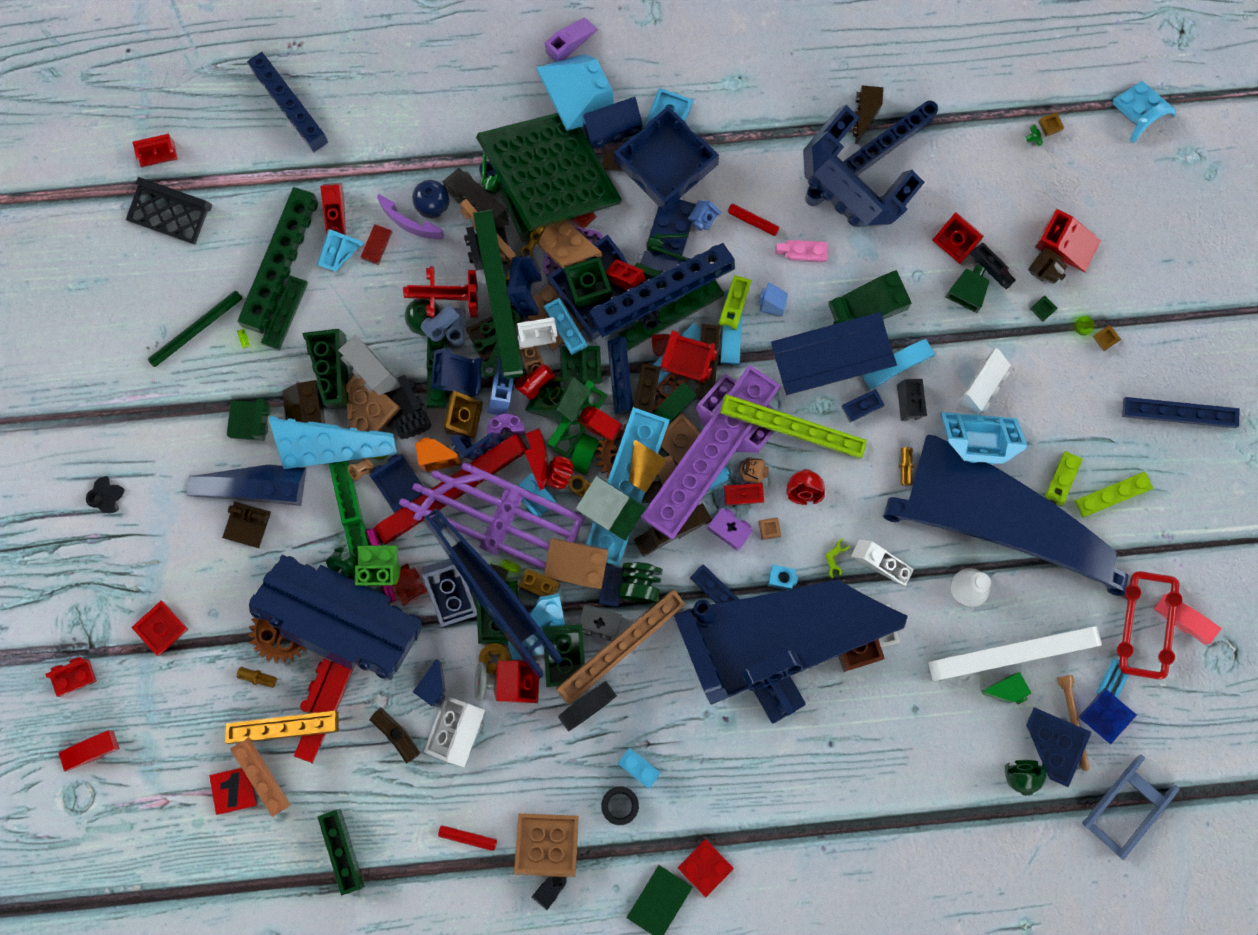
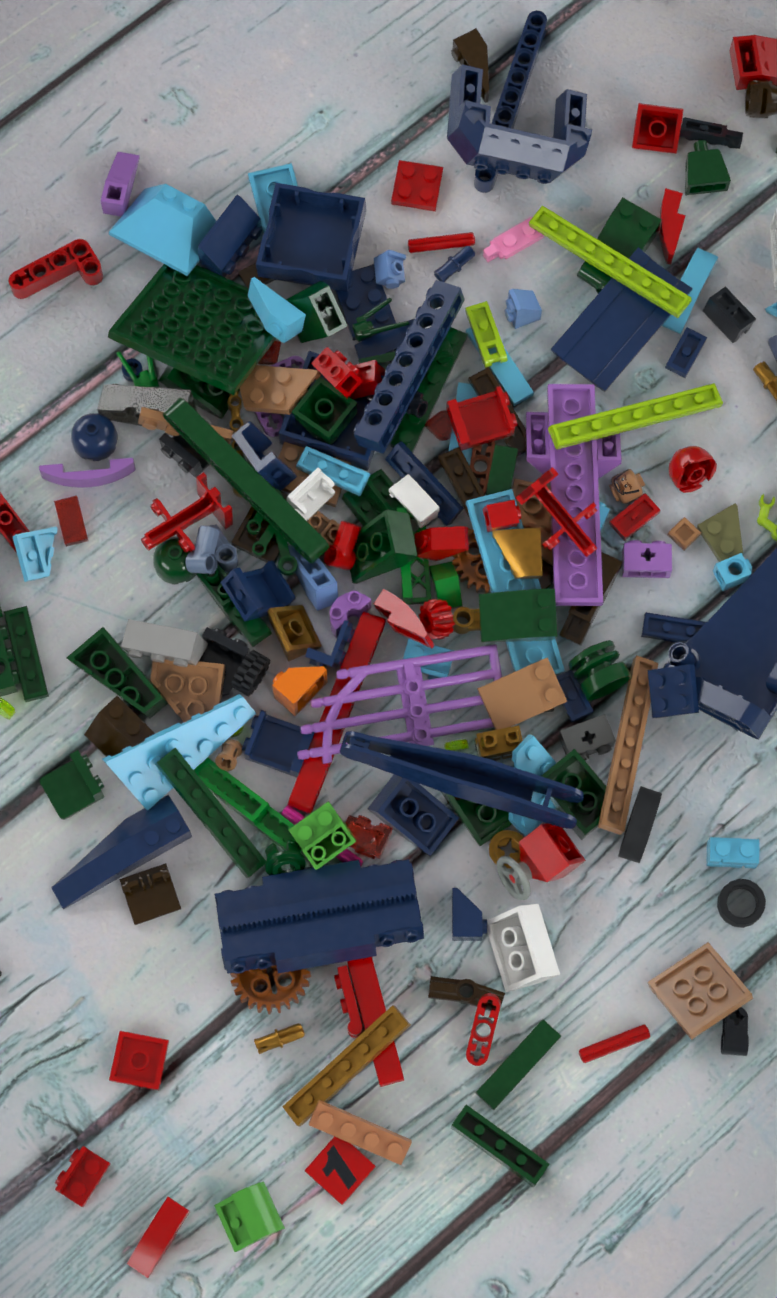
camera: 35 degrees left, 5 degrees down
(152, 780) = (249, 1216): none -> bright green brick
(318, 499) = (211, 812): none -> dark green plate
(379, 768) = (472, 1045): none -> red beam
(395, 806) = (518, 1064): none -> dark green tile
(482, 72) = (56, 273): none -> red beam
(603, 198) = (276, 313): none -> medium azure slope
(603, 383) = (415, 500): none -> white hinge
(612, 261) = (337, 372): none -> red brick
(630, 211) = (321, 310): none -> dark green slope
(647, 433) = (501, 515): none -> red brick
(677, 632) = (673, 691): none -> dark blue plate
(687, 469) = (560, 514): none -> red piece
(751, 240) = (454, 263): none -> dark blue axle
(766, 170) = (417, 185): none -> red plate
(796, 547) = (723, 533): none -> olive wing
(854, 309) = (610, 261): none -> lime tile
(919, 309) = (671, 223): none -> red slope

